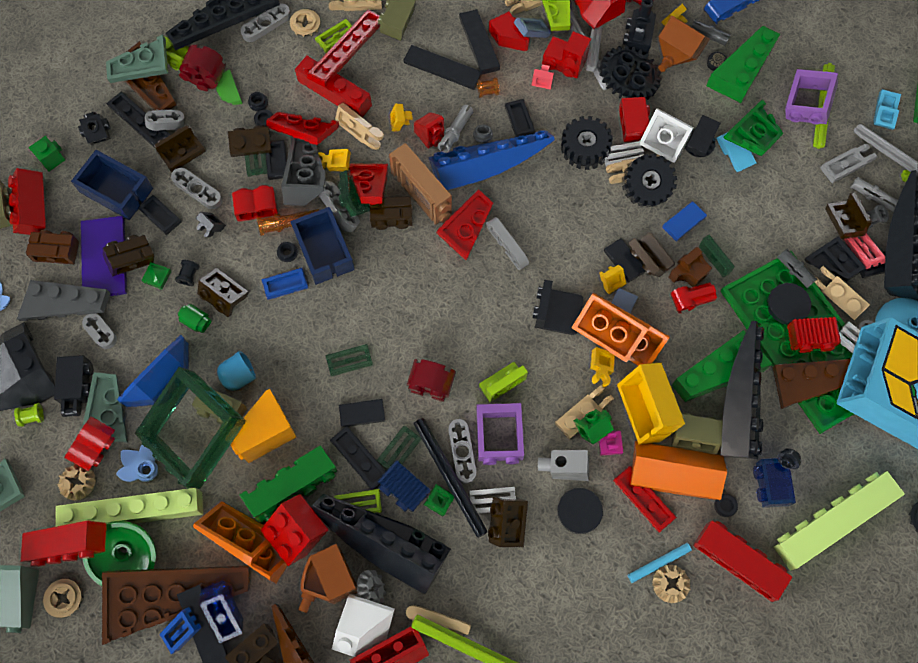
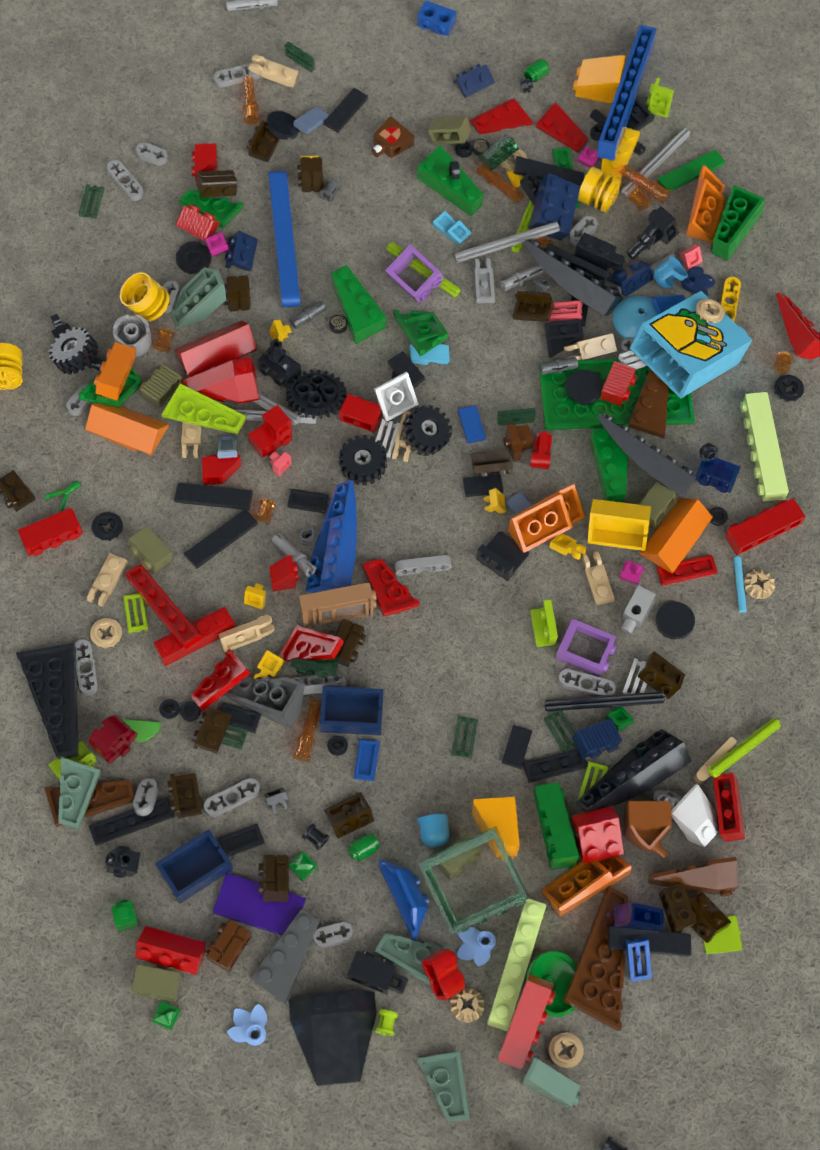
camera: 65 degrees left, 5 degrees down
(254, 203) = (276, 752): red brick -> none
(431, 379) = (518, 676): dark red brick -> none
(594, 426) = (615, 574): green brick -> none
(680, 43) = (312, 340): dark orange piece -> none

